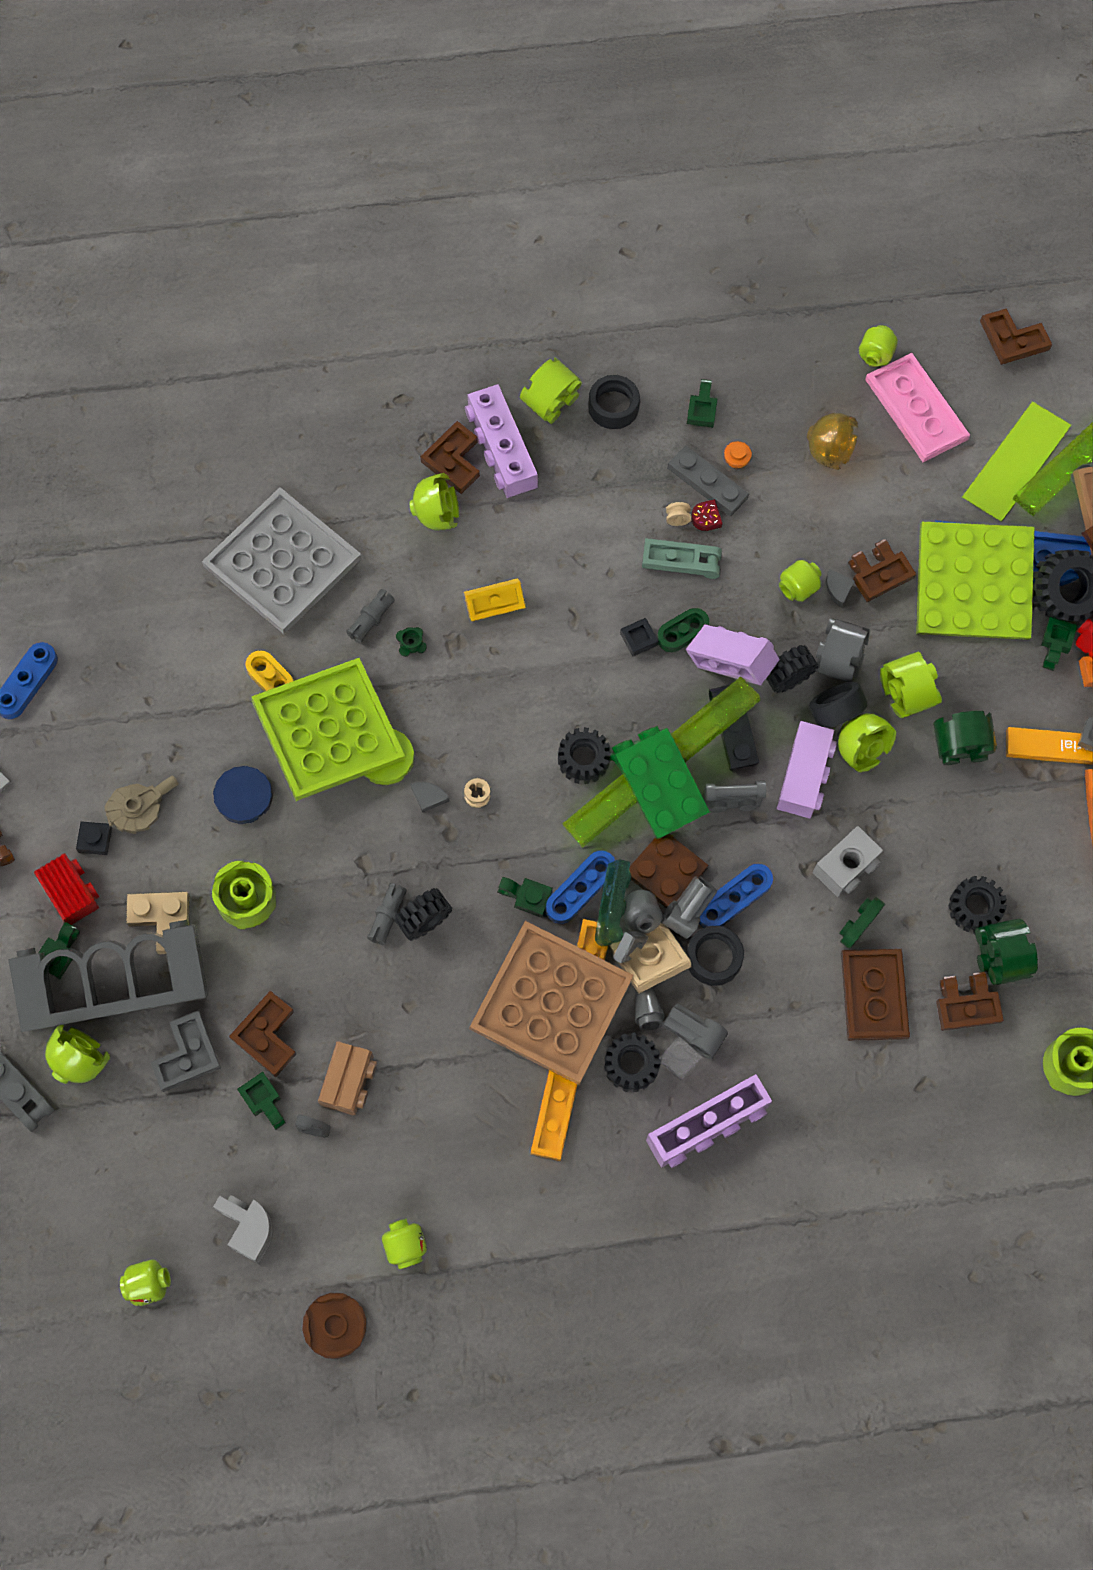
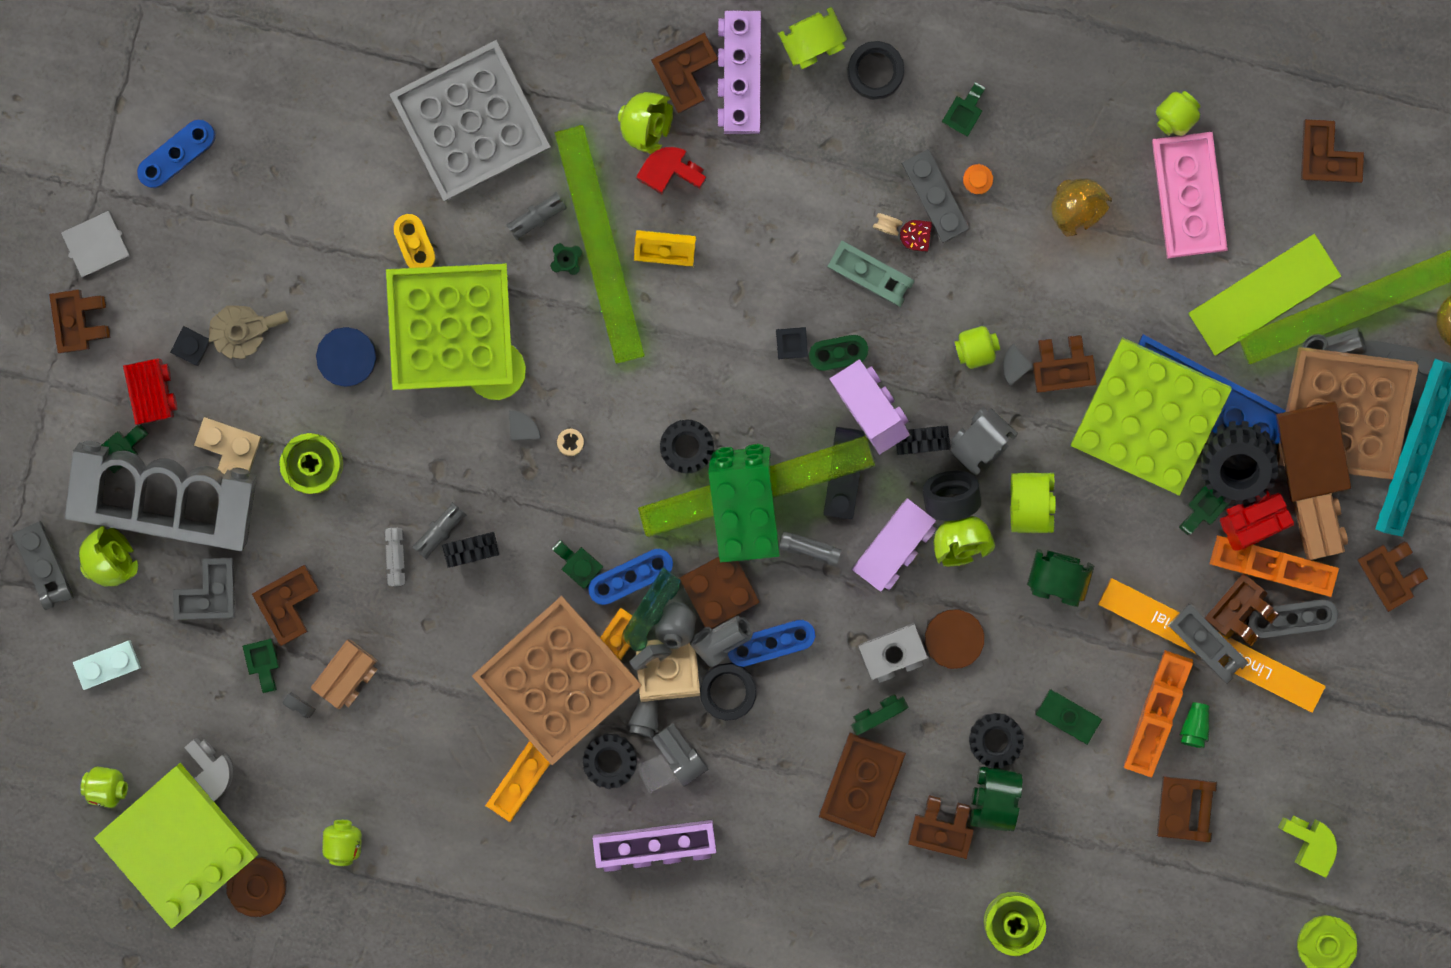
camera: 20 degrees right, 20 degrees up
(109, 1162) = (106, 665): none -> light aqua plate
(238, 1312) = (176, 845): none -> lime plate
(354, 953) = (394, 556): none -> light grey axle
(437, 621) = (599, 244): none -> clear neon green plate
(468, 532) = (662, 166): none -> red brick
(897, 831) = (954, 638): none -> reddish brown tile
(1030, 860) = (1068, 716): none -> dark green plate

